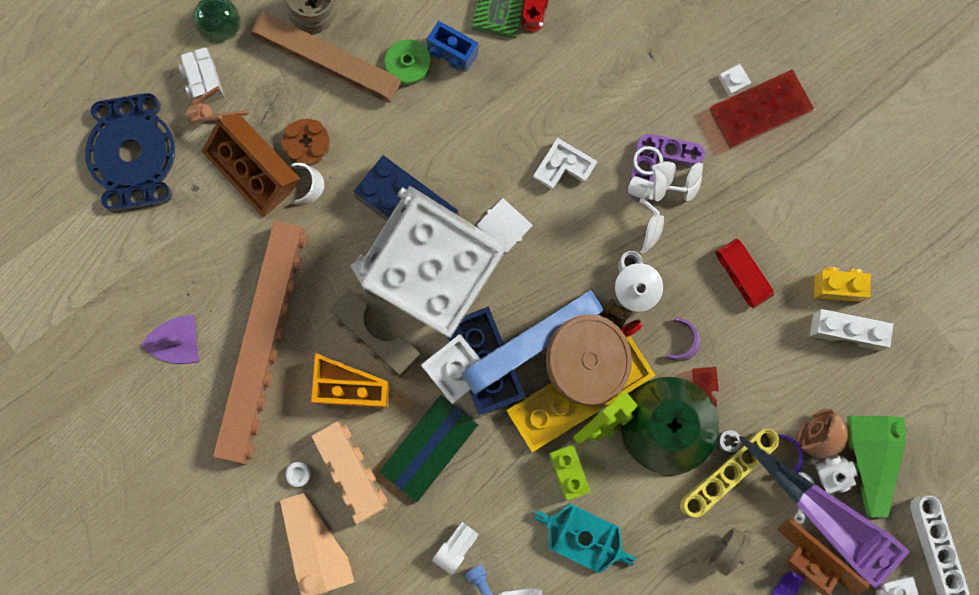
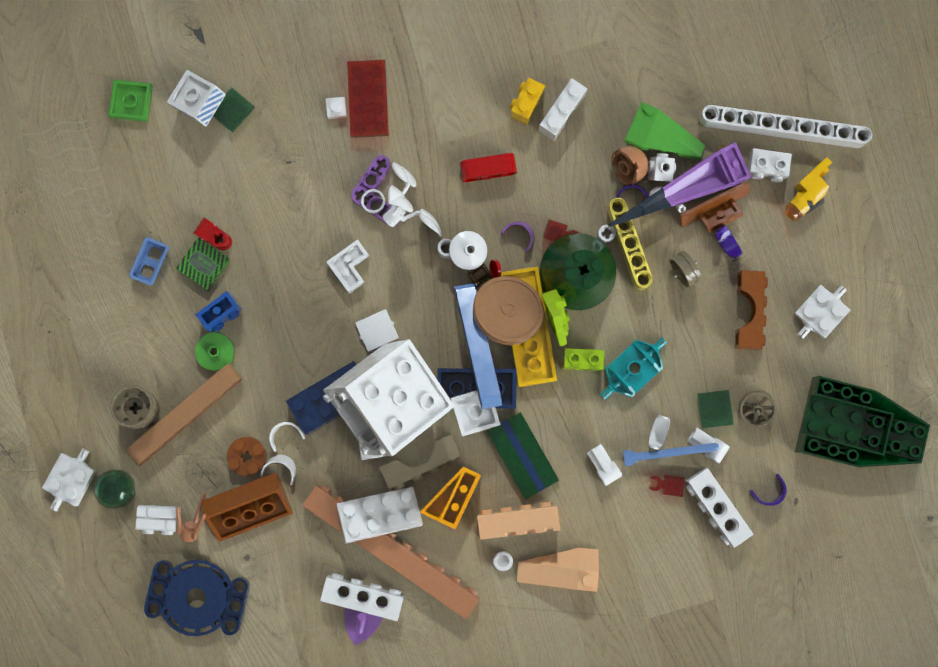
camera: 65 degrees left, 5 degrees up
(186, 295) = (332, 595): none -> white brick
(295, 310) = (379, 514): none -> white plate
(347, 159) = (276, 427): none -> white helmet

